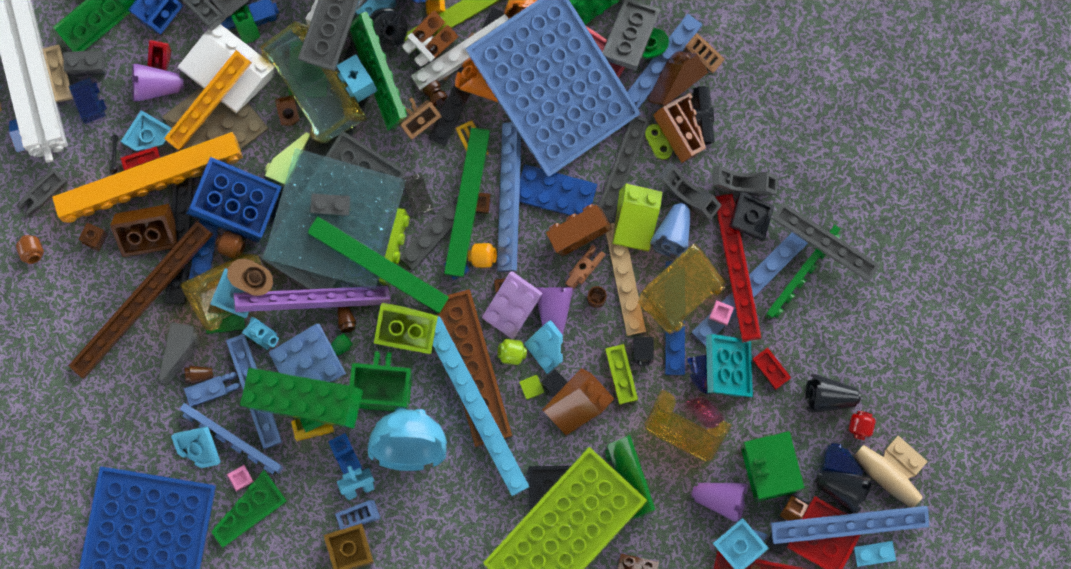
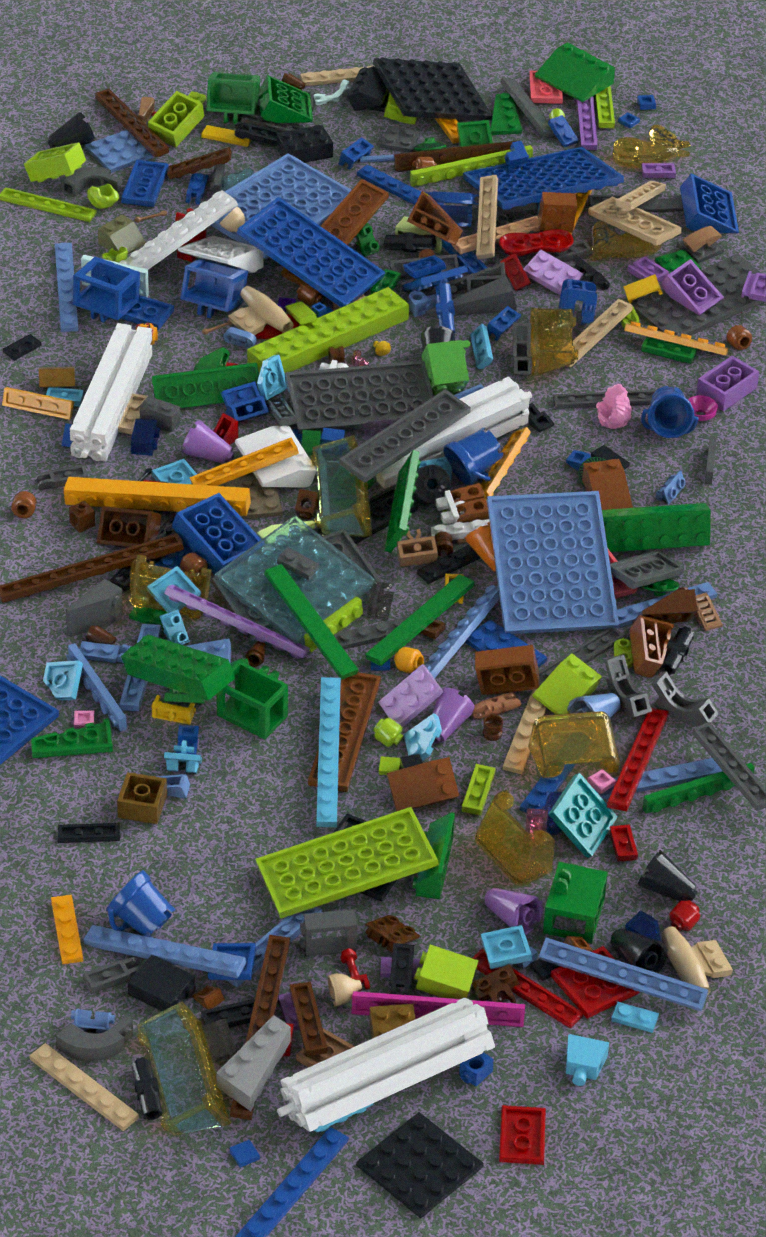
camera: 30 degrees right, 35 degrees down
(250, 277) = (193, 572): medium nougat piece -> none
(357, 78) = (380, 500): medium azure brick -> none
(405, 328) = (303, 670): lime slope -> none
(407, 441) = (246, 737): medium azure rock -> none
(643, 350) = (511, 779): black brick -> none
(751, 216) = (674, 730): black plate -> none

